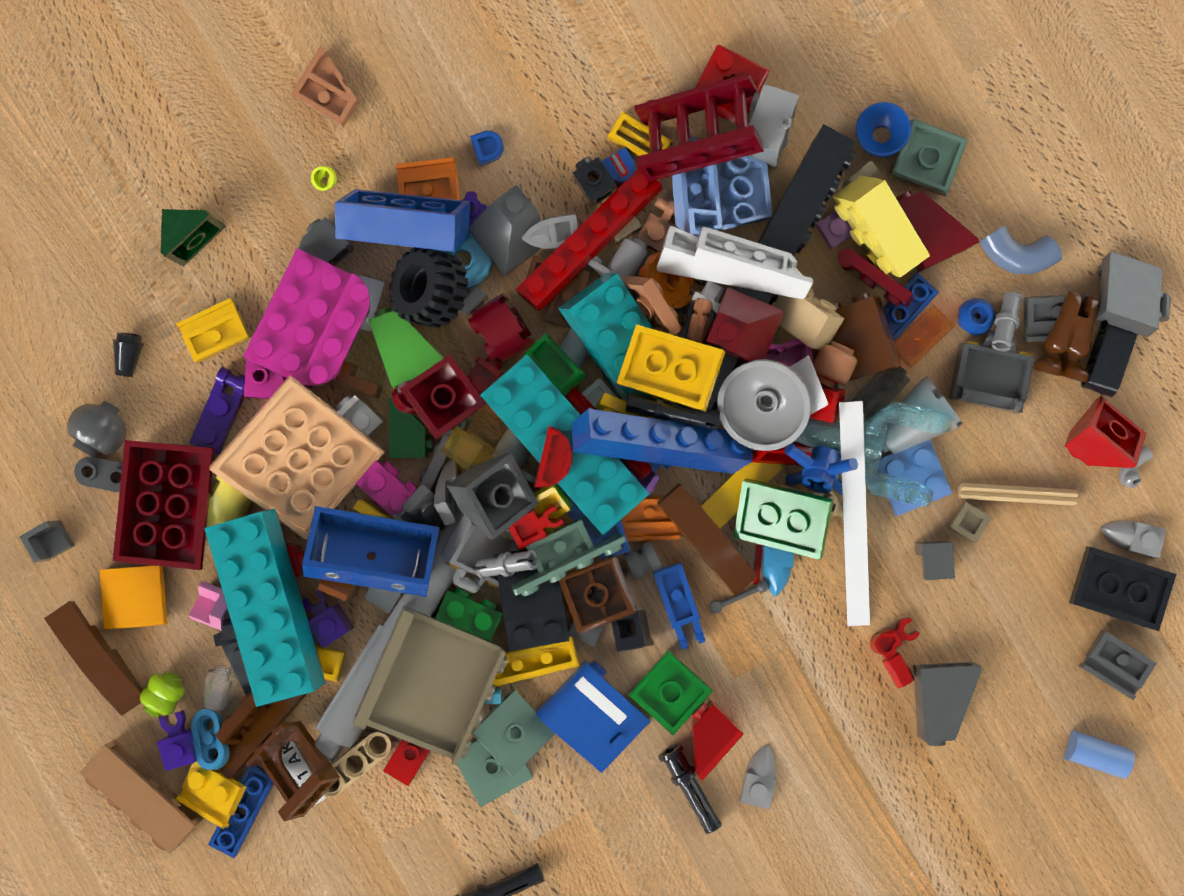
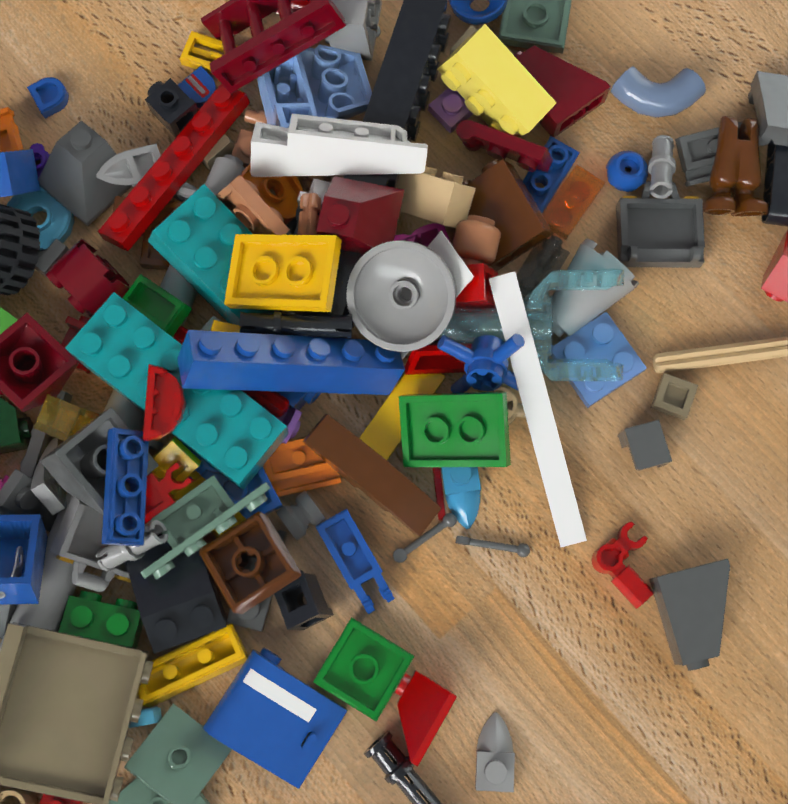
camera: 10 degrees left, 10 degrees down
(510, 534) = (124, 509): none -> blue tile
(816, 622) = (522, 549): none -> dark grey hinge

